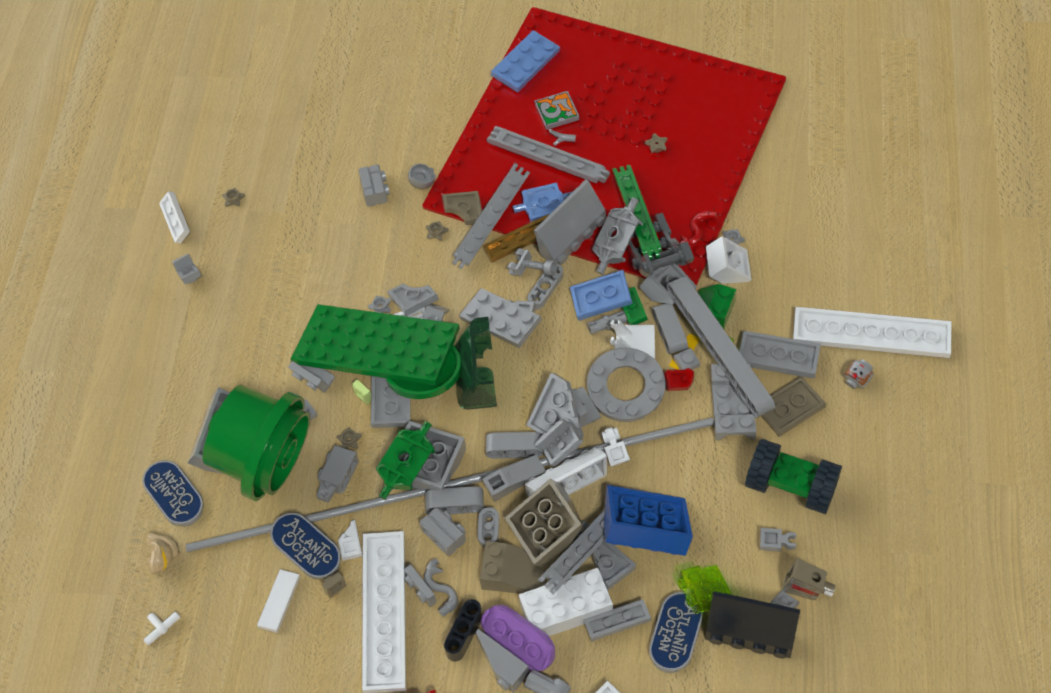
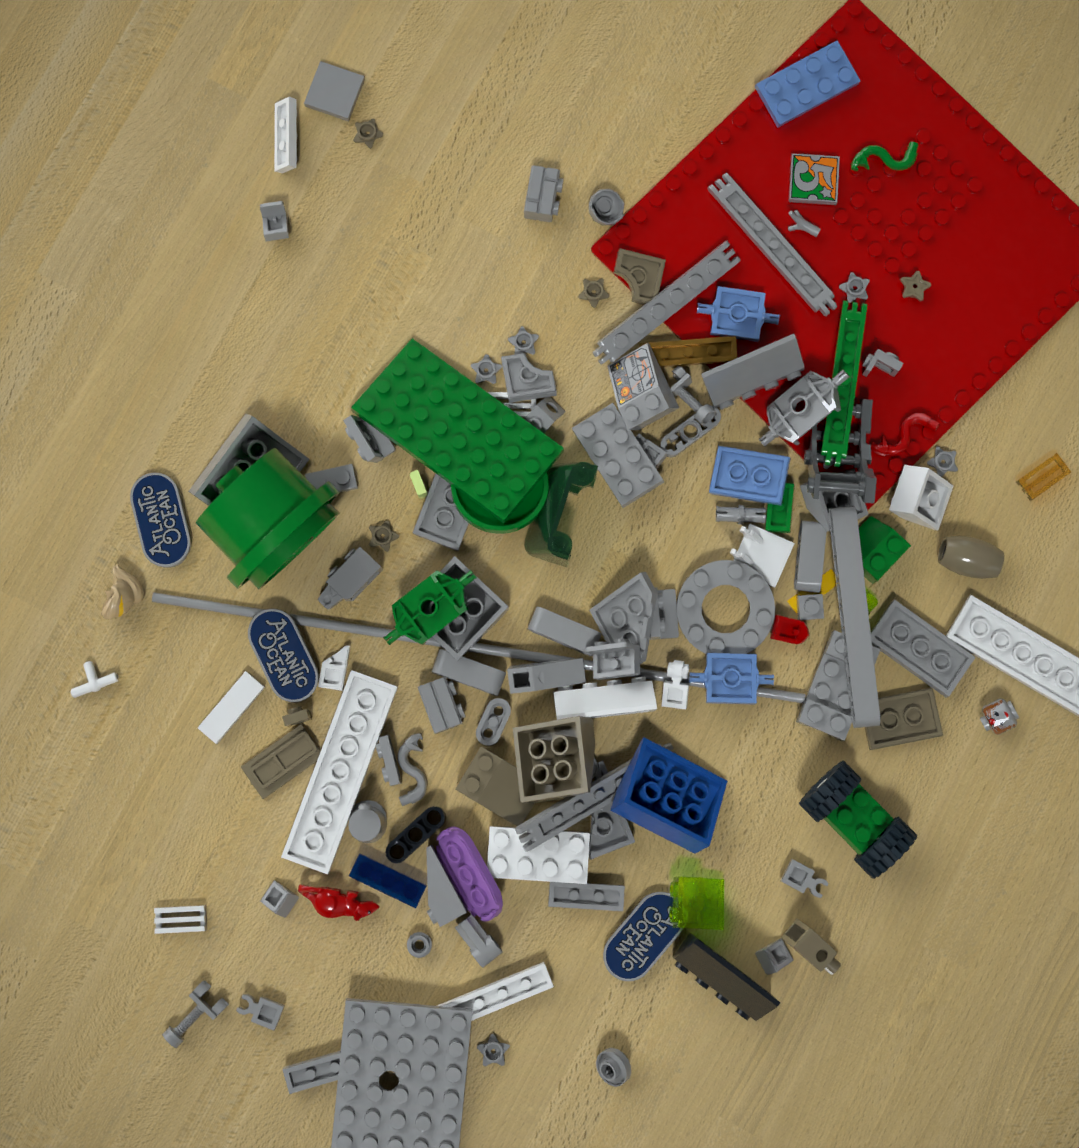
camera: 20 degrees right, 25 degrees up
(199, 181) = (334, 91): none -> light grey tile
(334, 624) = (281, 761): none -> dark tan piece
(399, 274) = (520, 336): none -> light grey plate
(420, 637) = (368, 821): none -> light grey hat
(456, 674) = (387, 880): none -> clear blue plate
(498, 270) = (641, 388): none -> light grey slope
(582, 86) = (908, 160): none -> green animal
(616, 156) = (861, 285): none -> light grey plate
(652, 424) = (731, 678): none -> medium blue plate
(658, 192) = (886, 362): none -> light grey bracket
(782, 283) = (971, 557): none -> dark tan piece
(804, 234) = (1027, 488): none -> clear yellow tile

